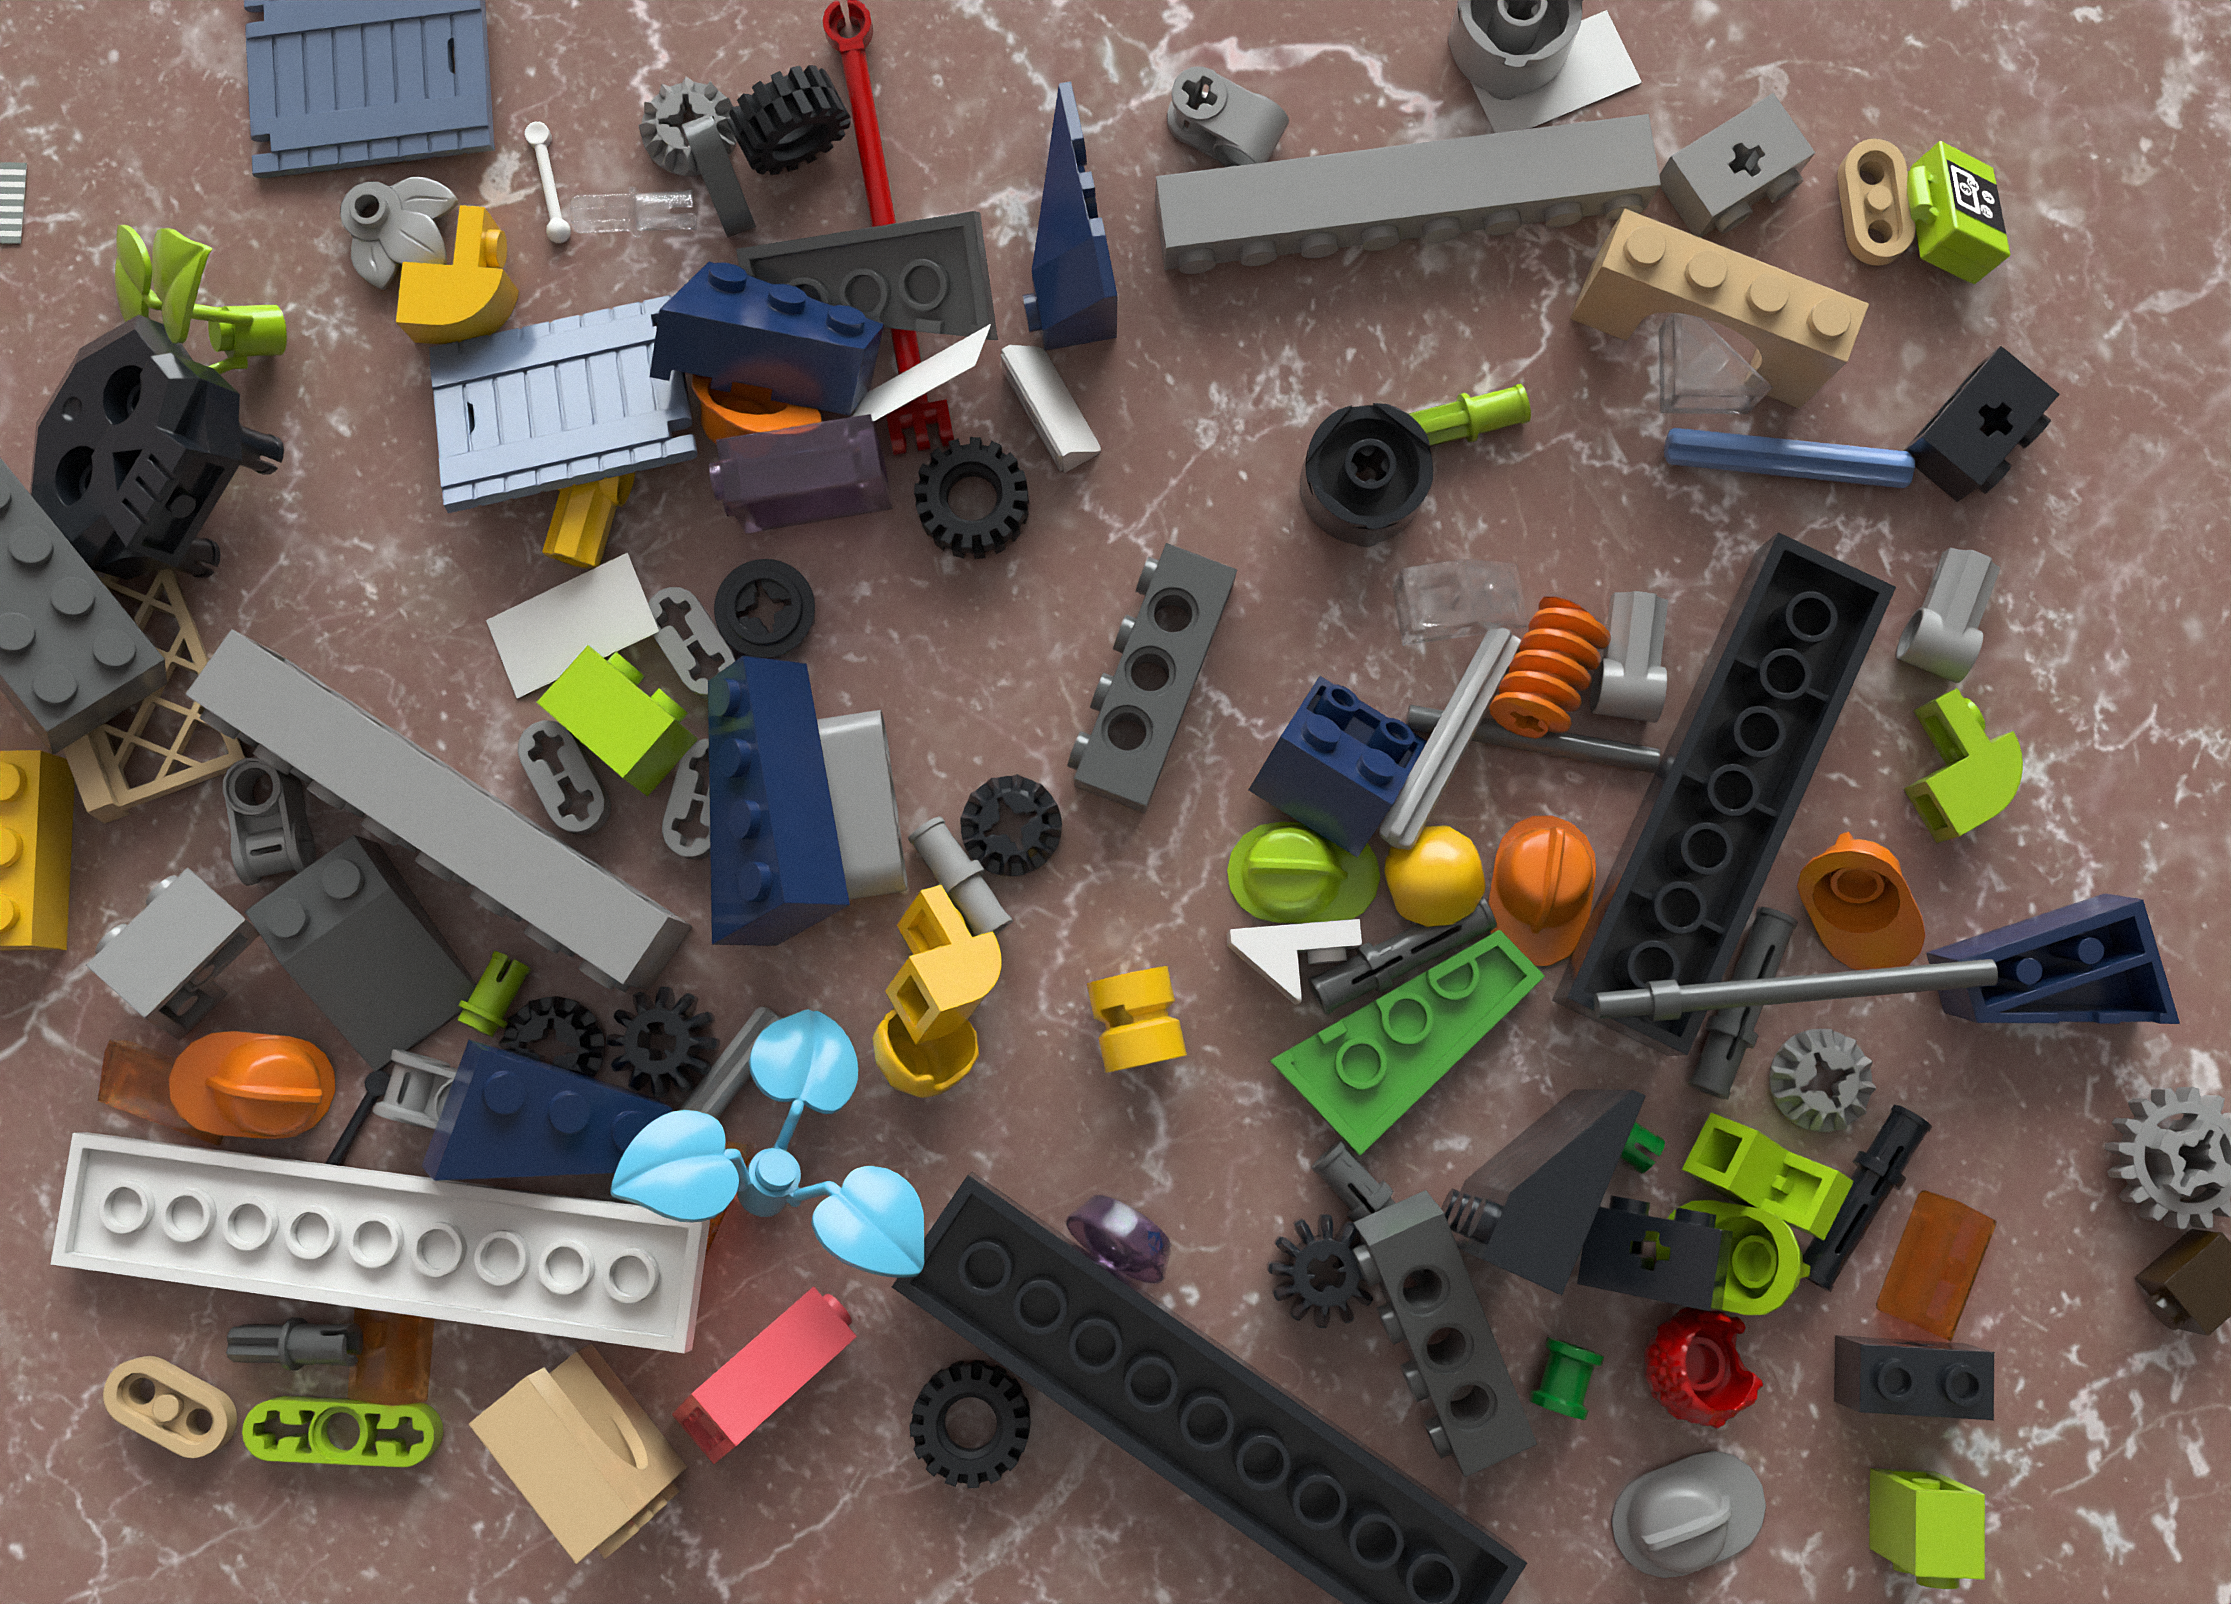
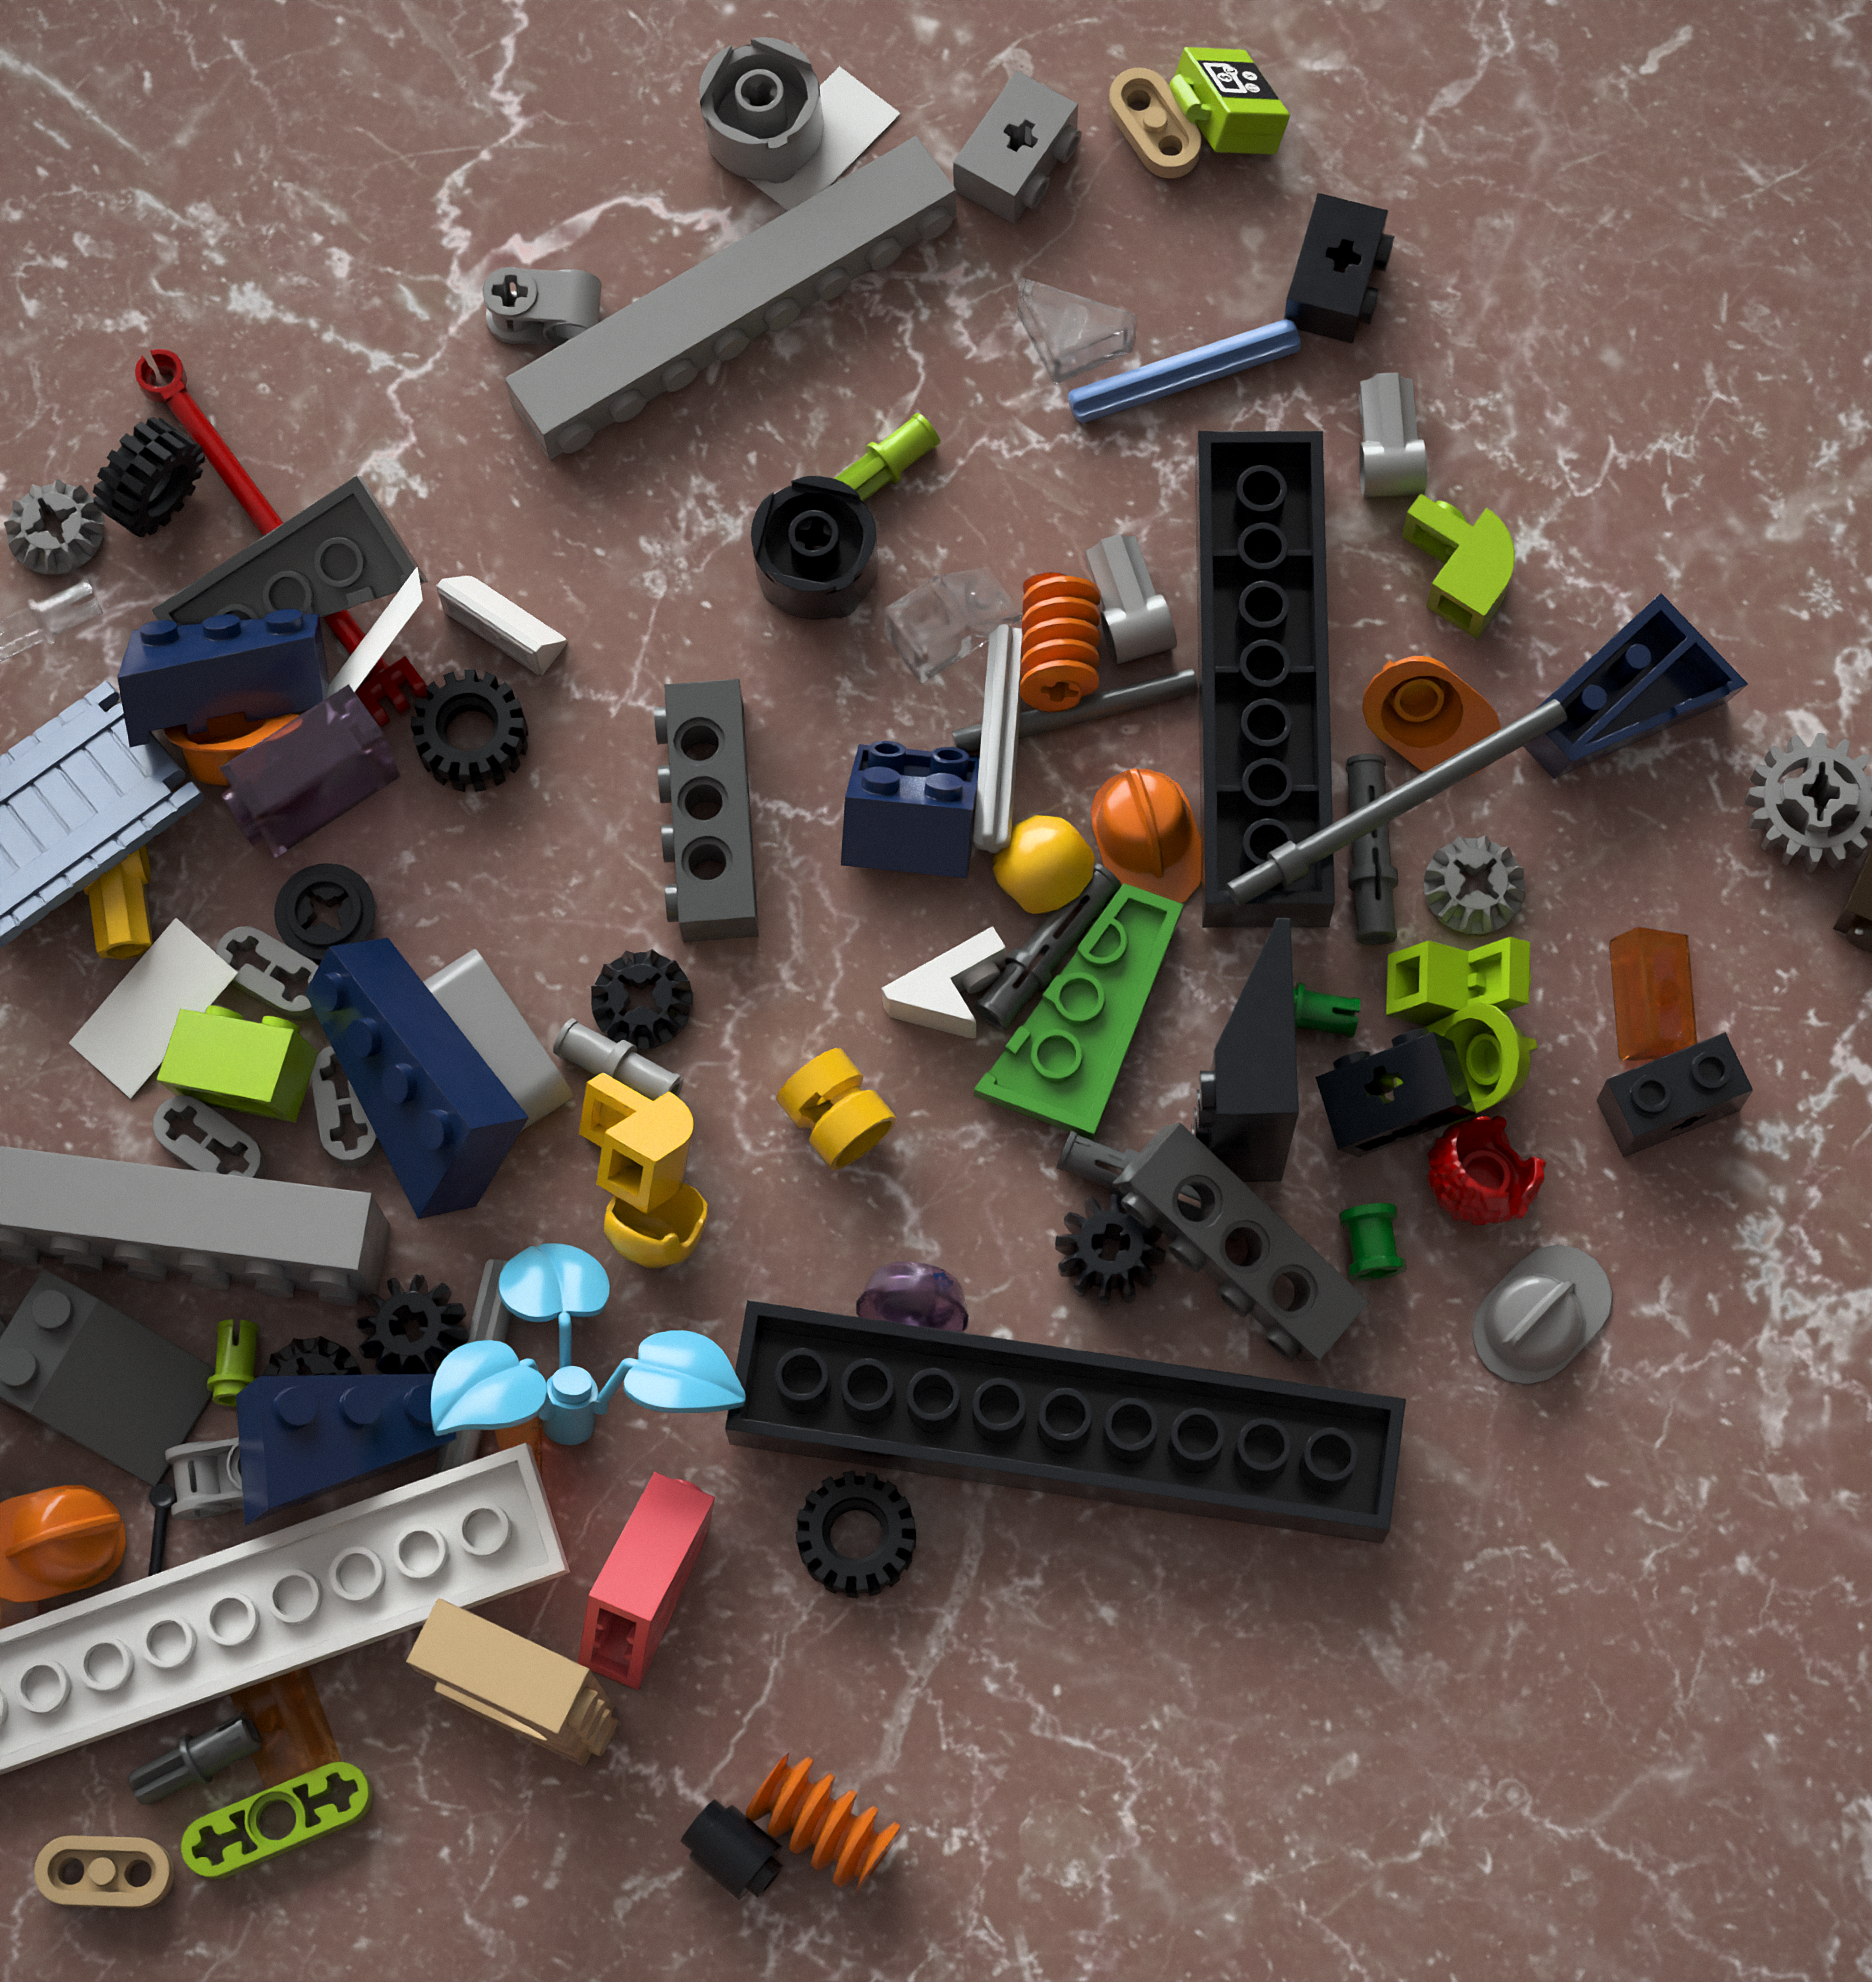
camera: 20 degrees left, 10 degrees down
(719, 175) = (106, 553): dark grey beam -> none
(1071, 264) = (468, 487): dark blue wedge -> none
(1299, 876) = (922, 919): lime piece -> none
(1795, 324) = (986, 256): tan arch -> none
(1874, 1178) = (1557, 964): black pin -> none
(1927, 1526) = (1741, 1208): lime brick -> none

